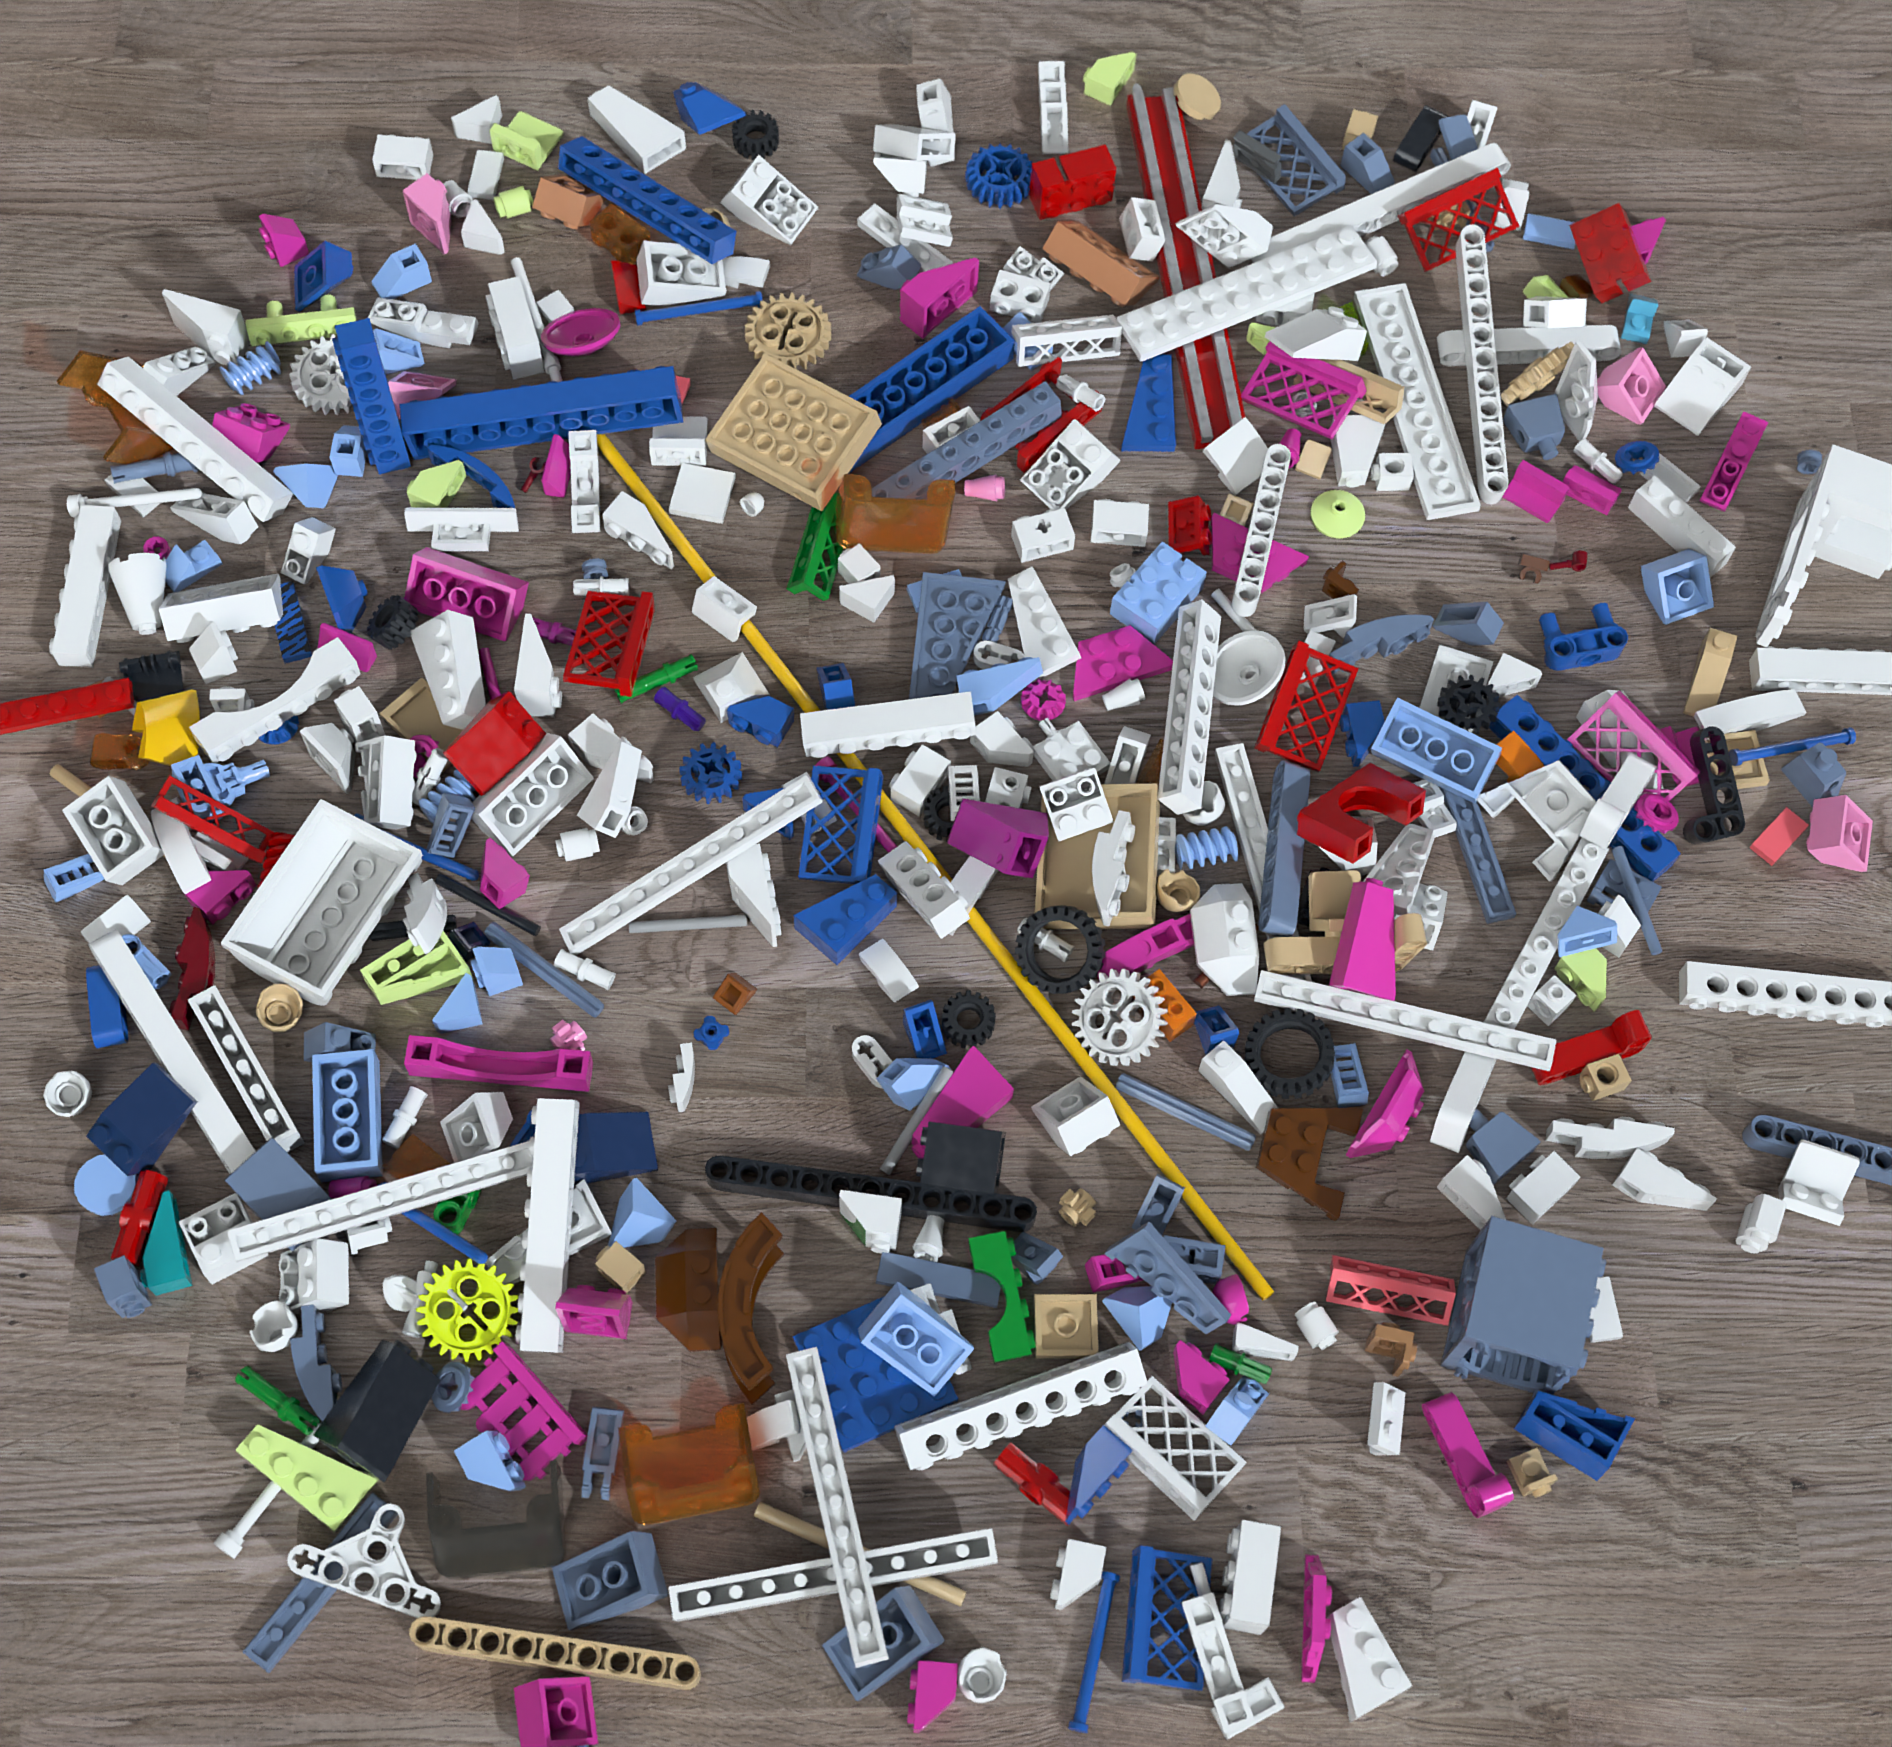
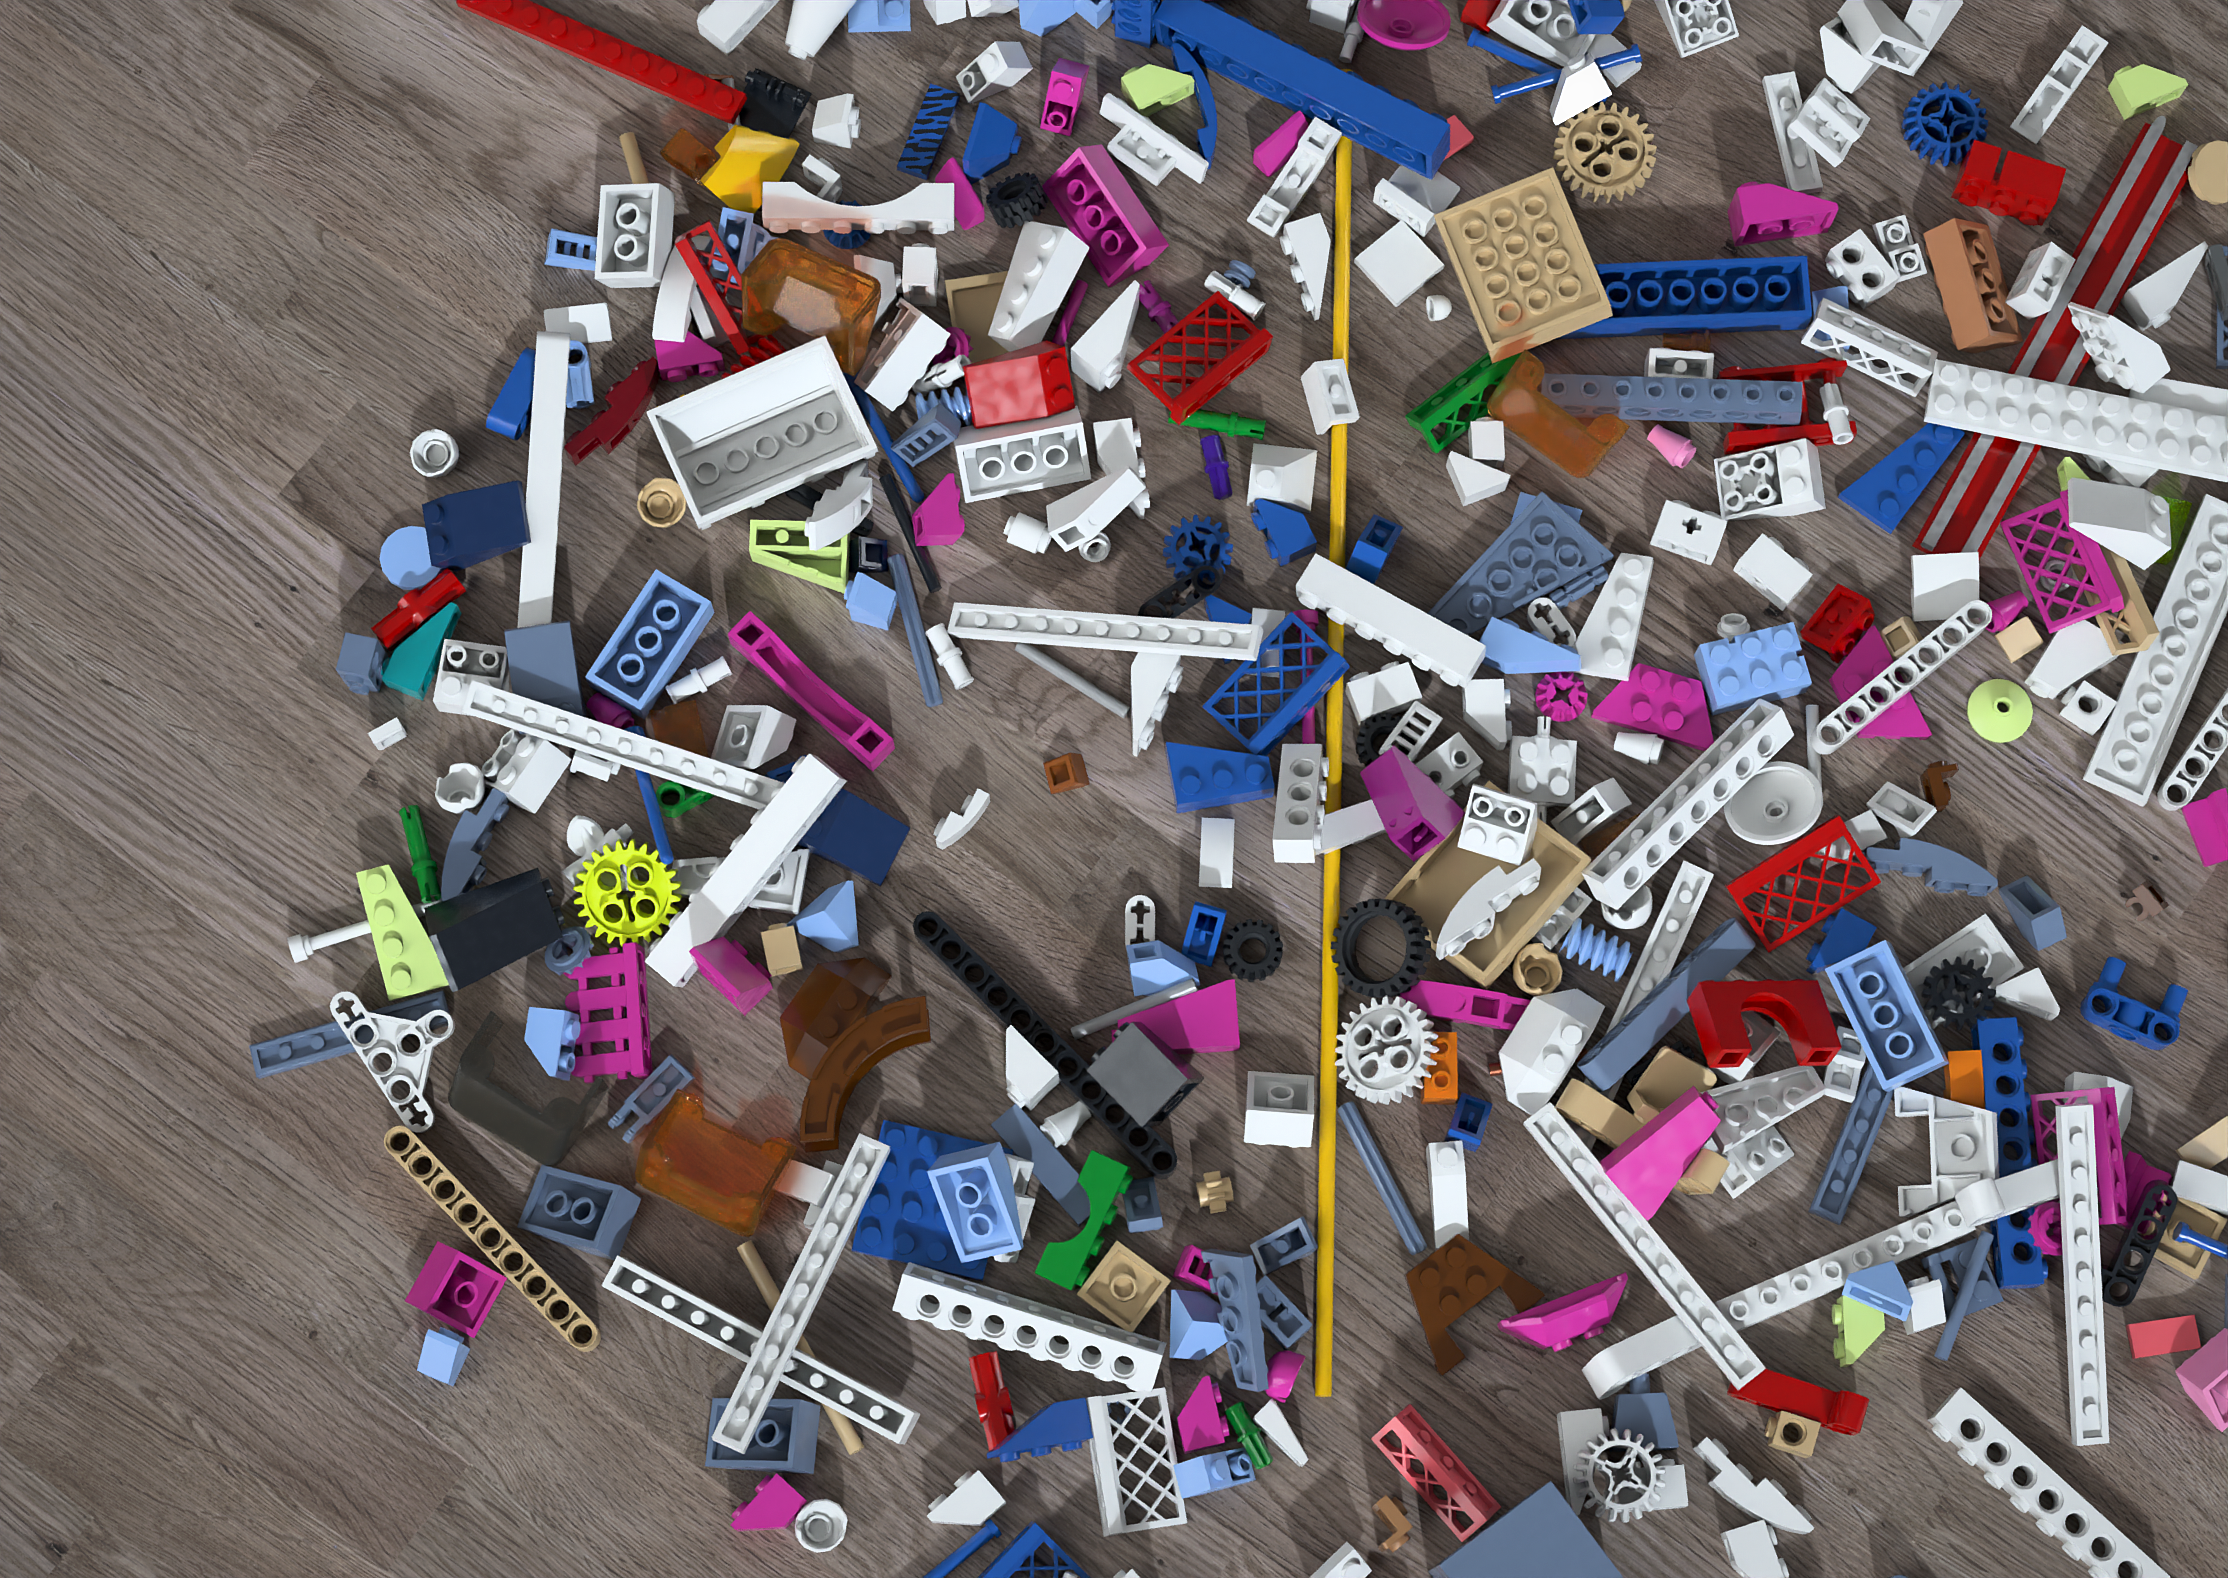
camera: 40 degrees right, 10 degrees up
(183, 1328) = (388, 734): none -> white tile
(229, 605) = (877, 77): white slope -> none
(245, 1069) = (594, 540): white brick -> none
(290, 780) = (813, 296): none -> clear orange windscreen
(335, 1038) = (689, 570): sand blue slope -> none
(374, 534) = (1064, 96): none -> dark pink slope
(460, 1009) = (816, 615): light blue slope -> none
(533, 474) = (1255, 135): dark red hand -> none
(568, 1036) = (888, 710): bright pink gear -> none
(711, 1041) = (1013, 804): blue plate -> none
(735, 805) = (1182, 583): none -> black beam
(738, 299) = (1578, 88): none -> white slope
(758, 256) = (1553, 77): none -> blue bar
(889, 267) = (1756, 151): sand blue slope -> none
(1051, 943) = (1383, 933): white axle -> none
(1298, 1021) = (1517, 1157): black tyre -> none
(1316, 1326) = (1342, 1454): white brick -> none
(1351, 1093) = (1554, 1274): light blue slope -> none
(1543, 1183) = (1605, 1467): none -> white gear
(1551, 1000) = (1802, 1327): white brick -> none
(1578, 562) = (2197, 929): dark red hand -> none
(1703, 826) = (2082, 1274): none -> white plate

